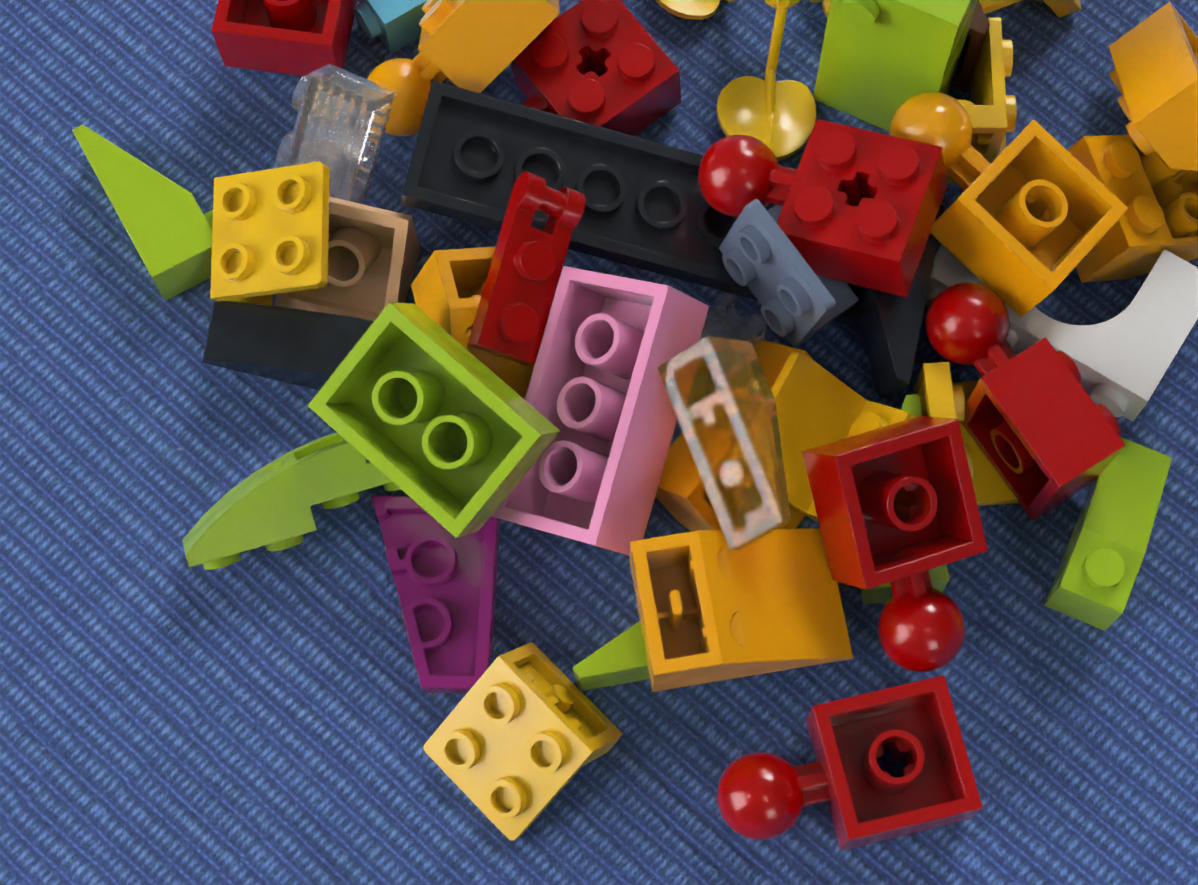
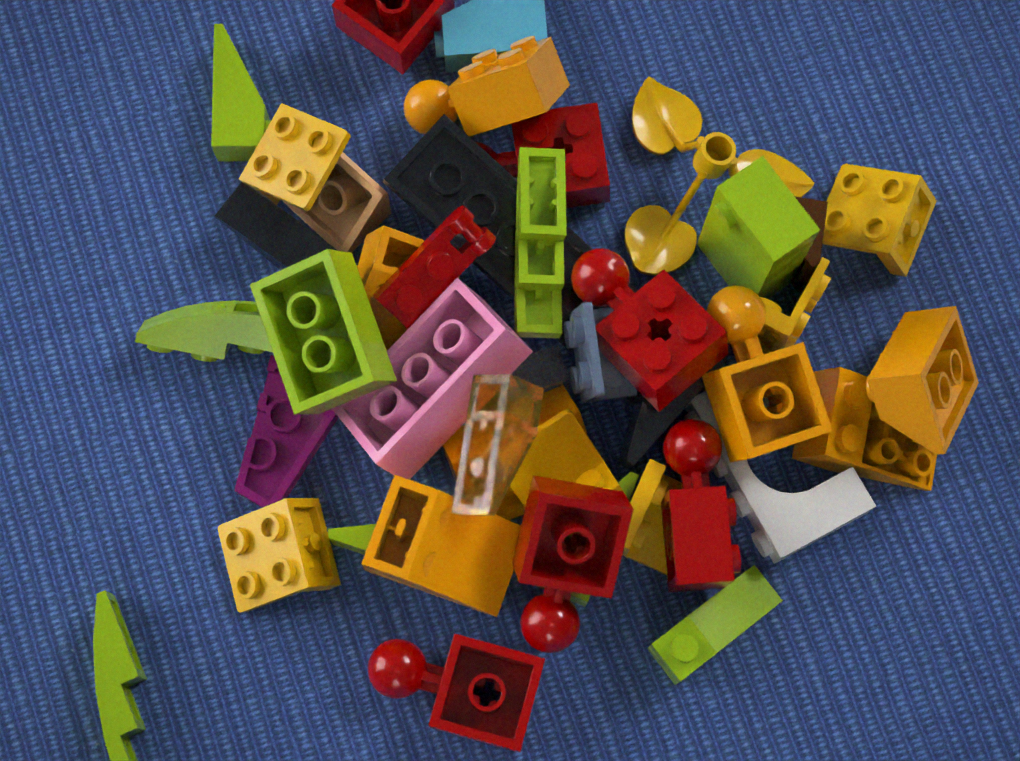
camera: 25 degrees right, 5 degrees up
(340, 126) = (374, 112): clear brick -> none
(637, 174) = (539, 242): none -> lime slope

